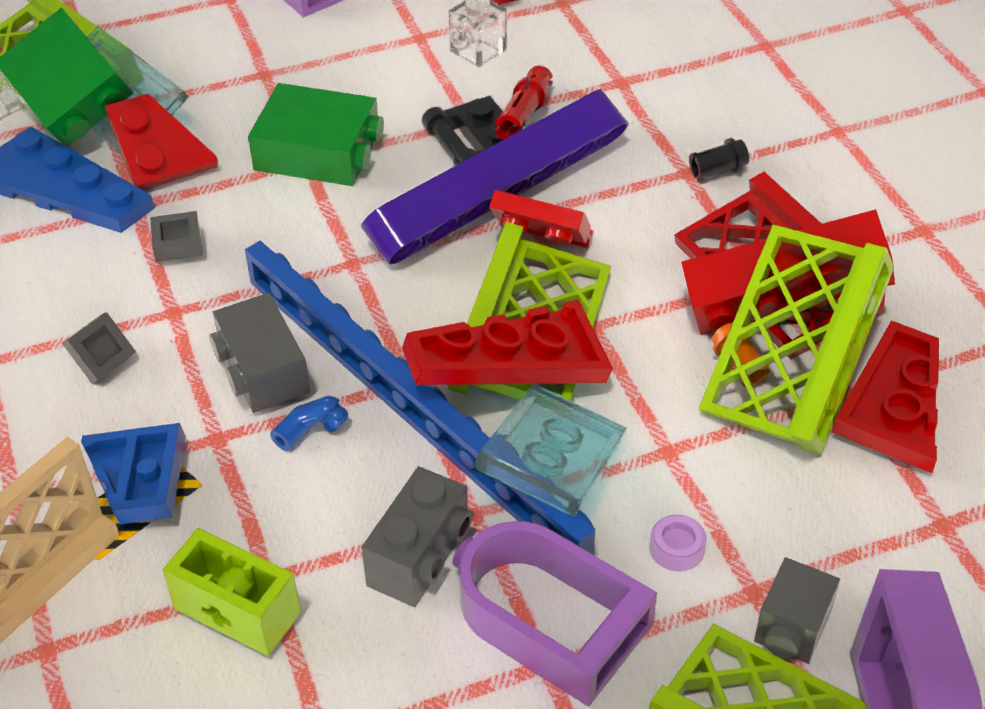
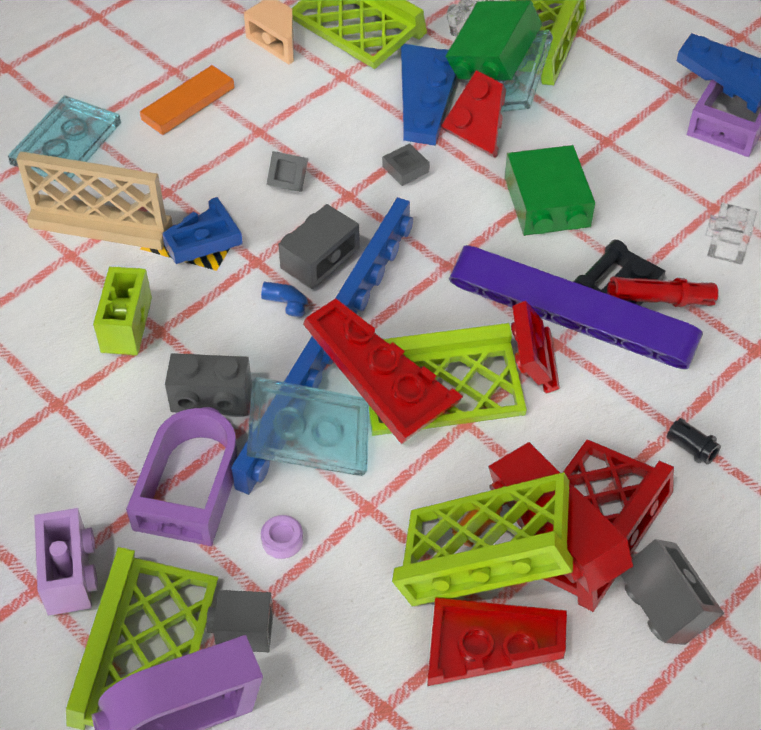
camera: 65 degrees right, 5 degrees up
(919, 233) = (670, 593): none -> dark grey brick

